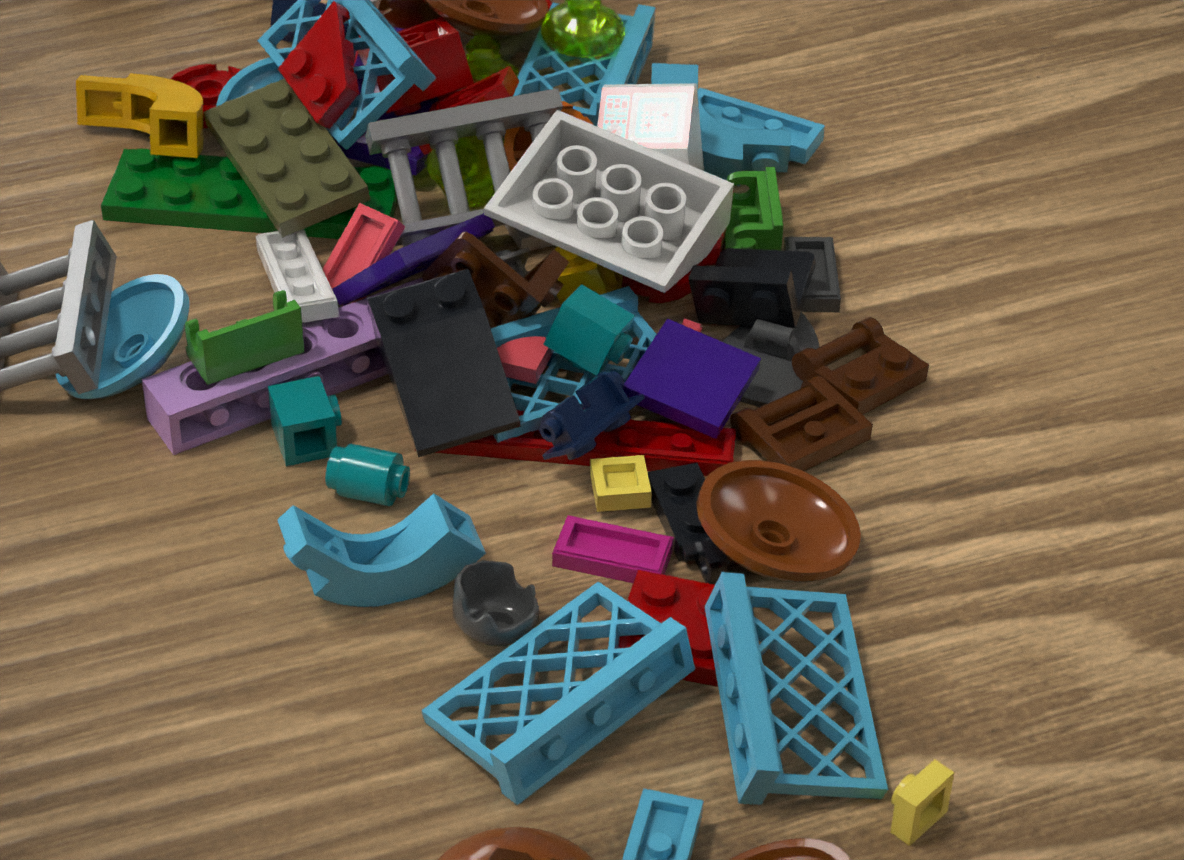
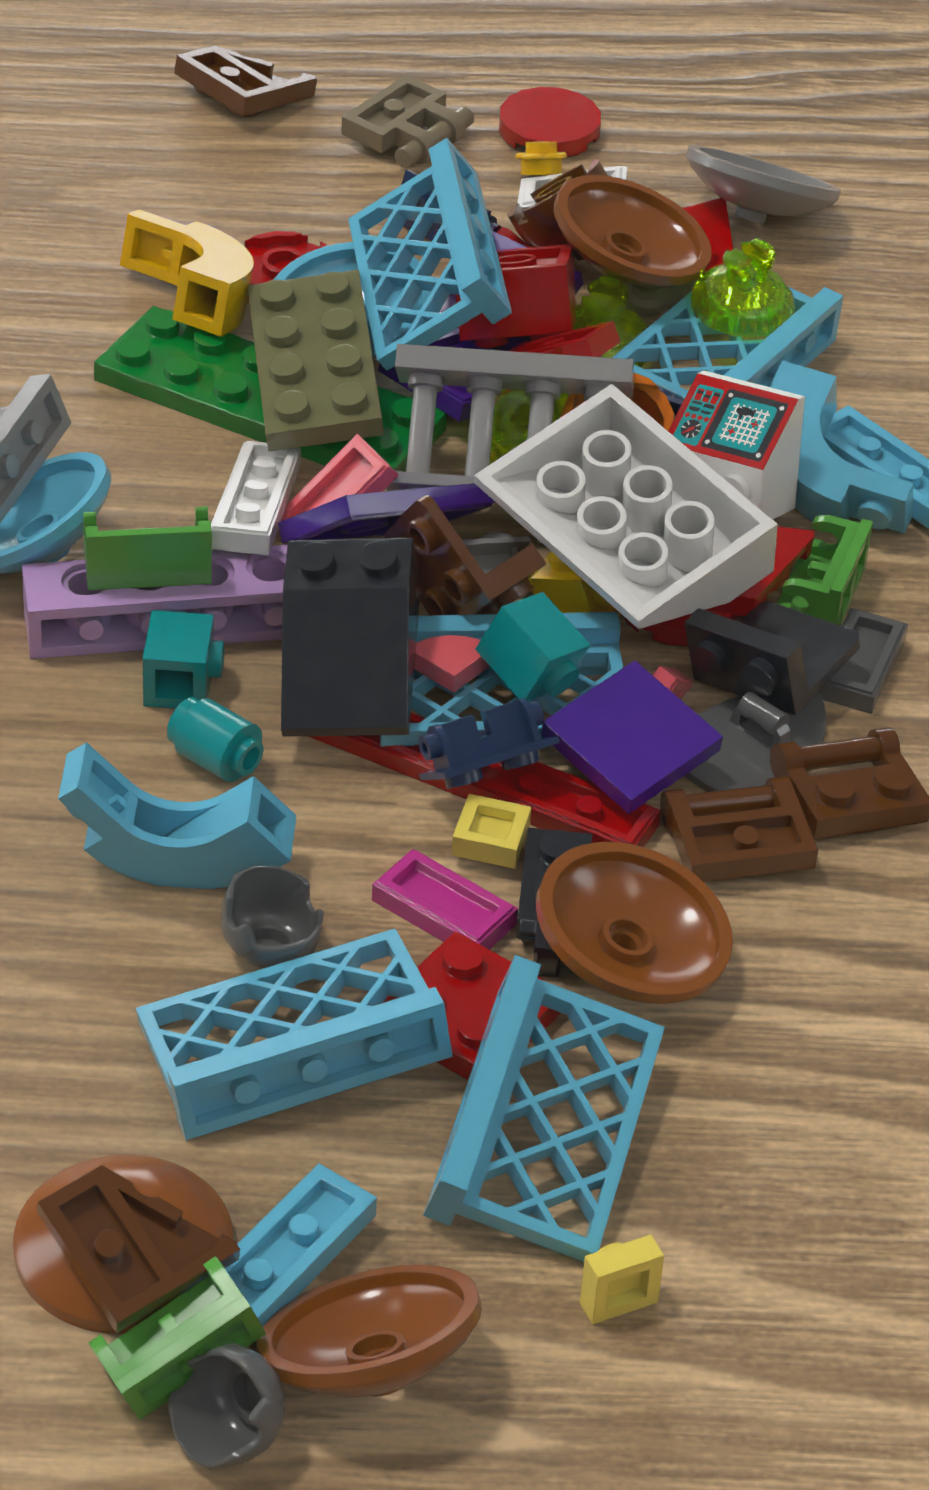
camera: 20 degrees right, 0 degrees up
(323, 67) = (390, 268): red wing -> none

